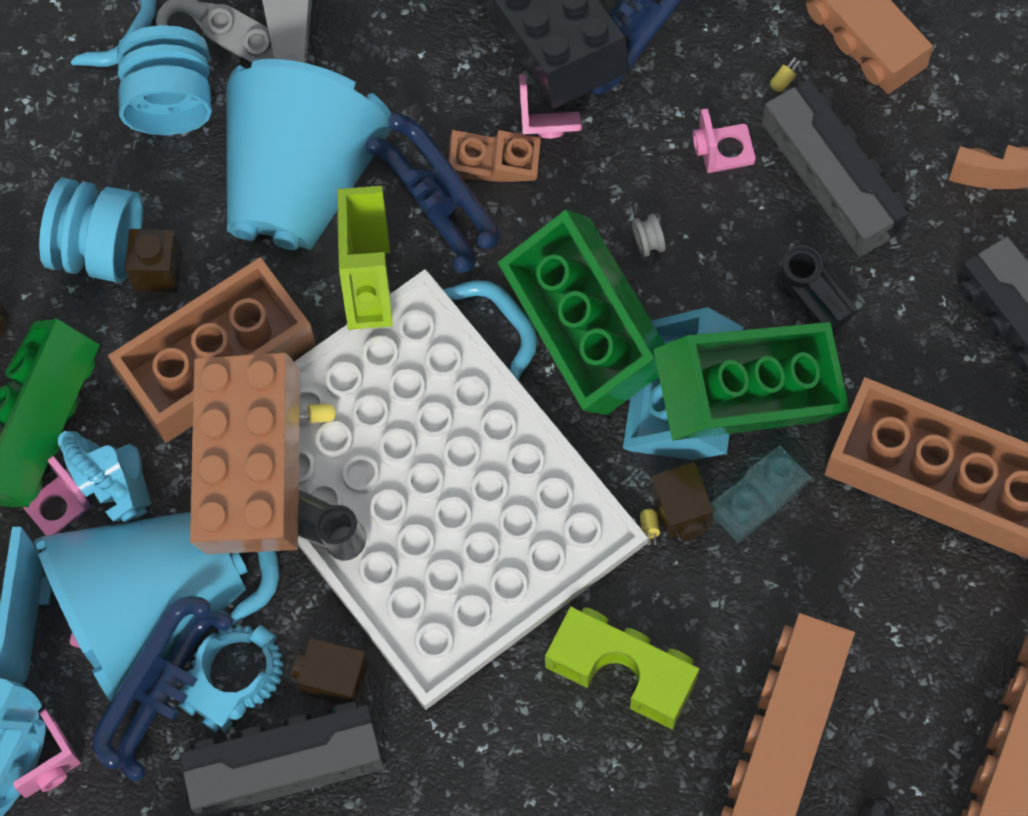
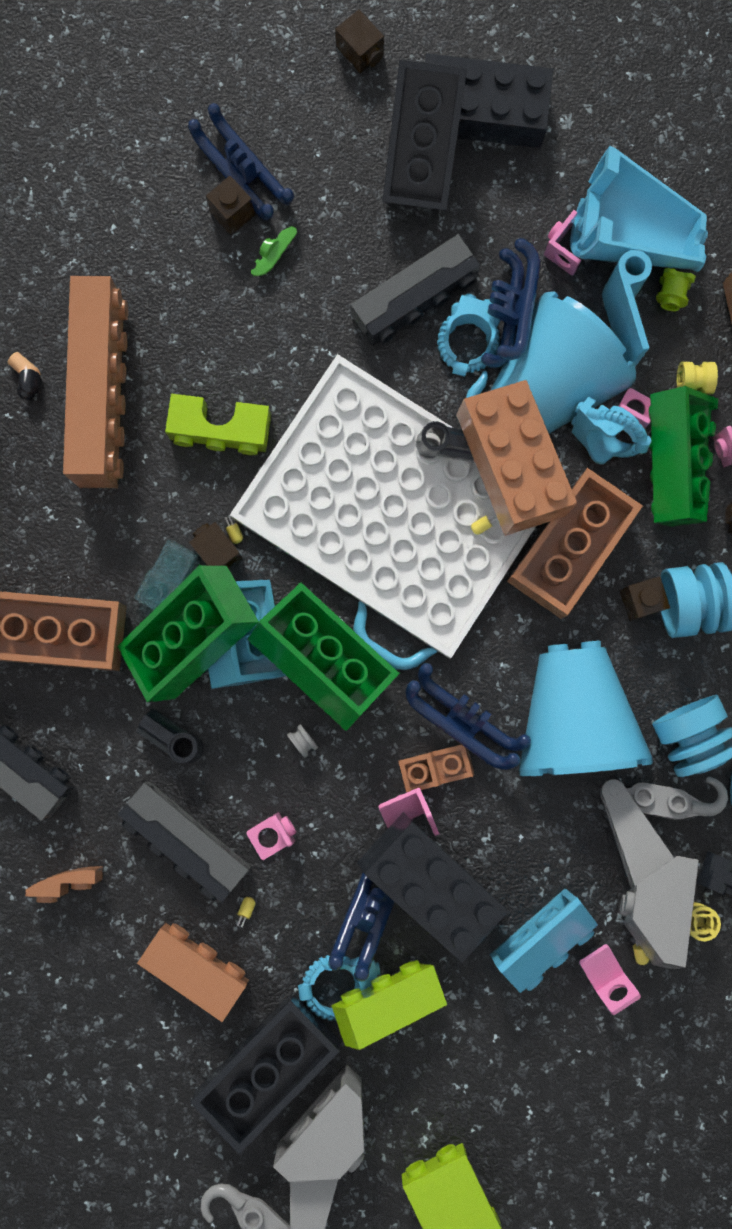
camera: 155 degrees right, 15 degrees up
(330, 671) = (406, 356): dark brown brick -> none
(362, 259) = (487, 610): lime panel -> none

